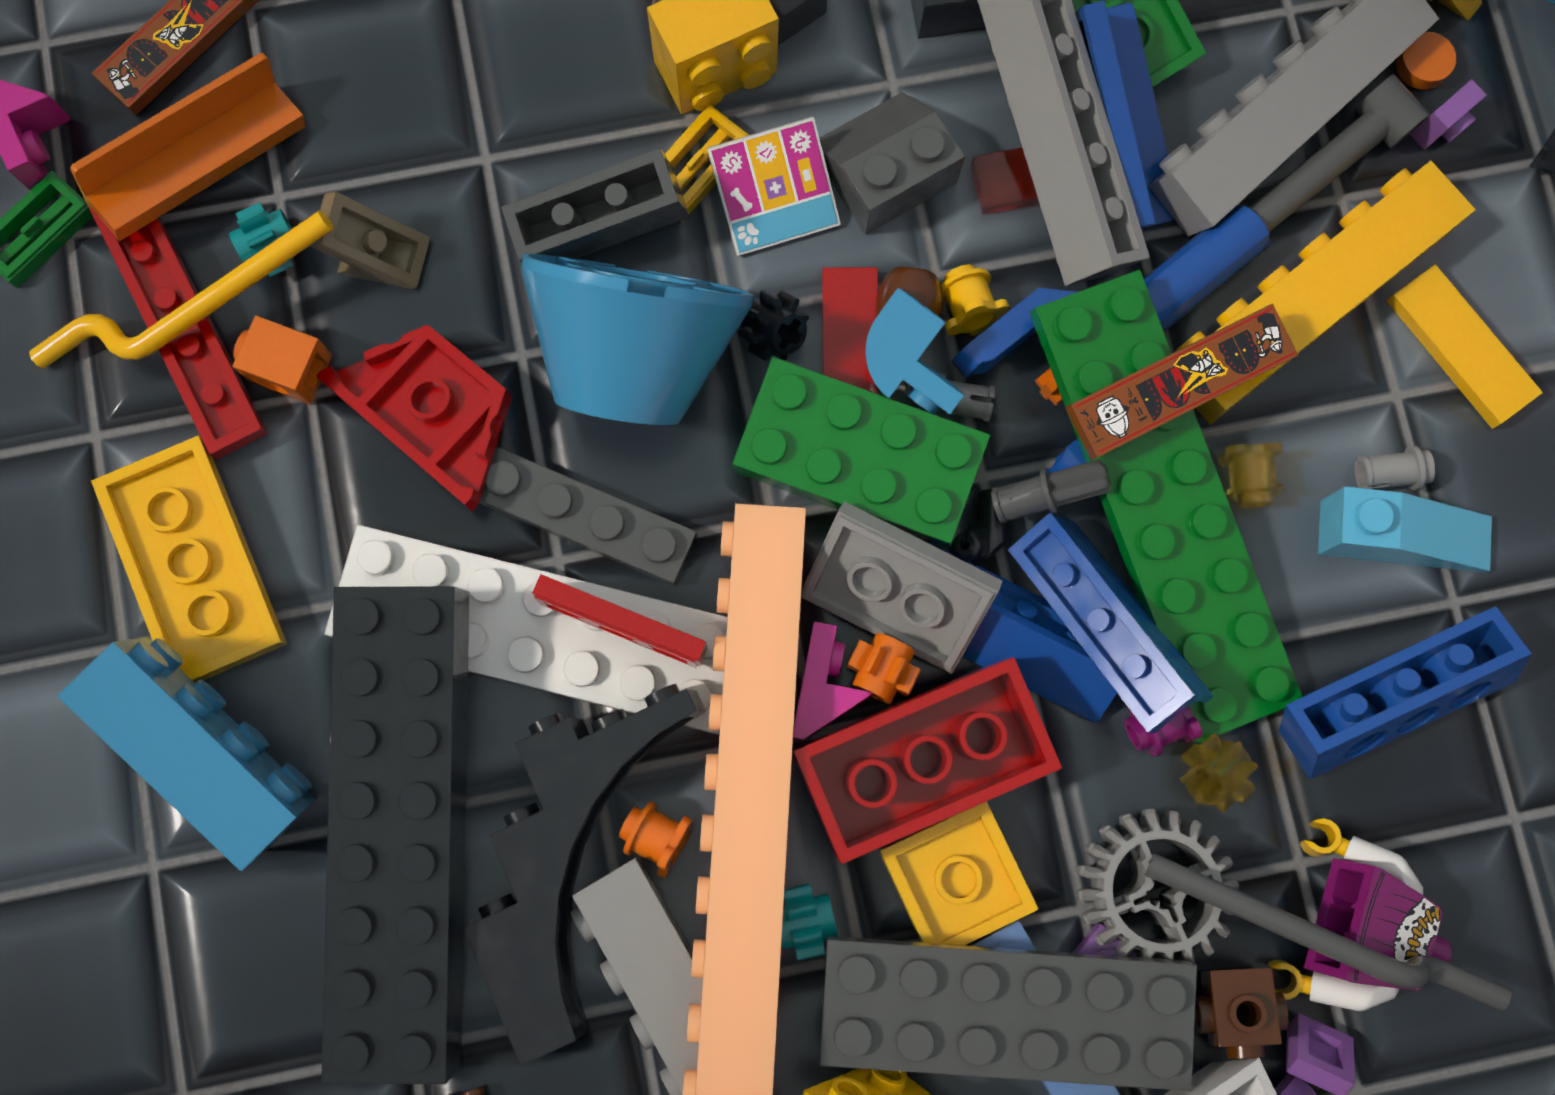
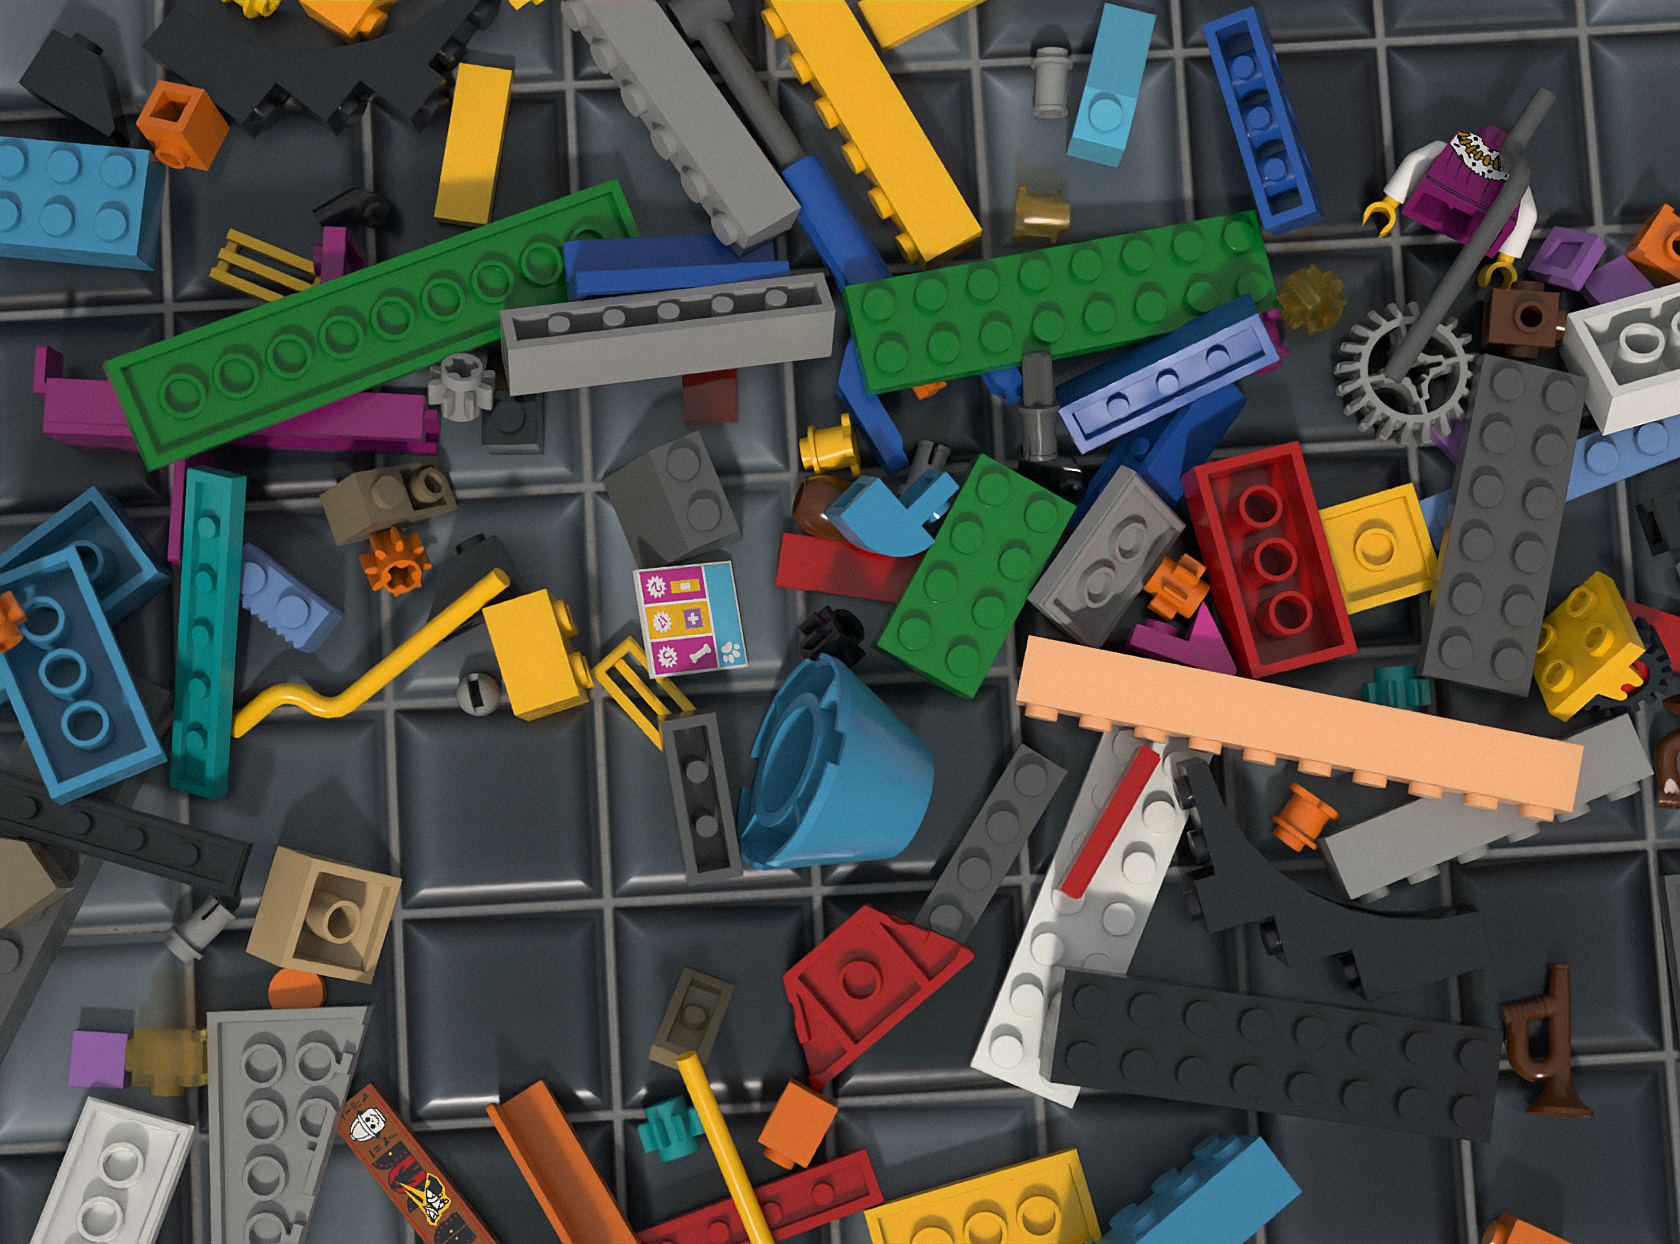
camera: 80 degrees left, 5 degrees up
(1181, 381) = (960, 268): tile -> none

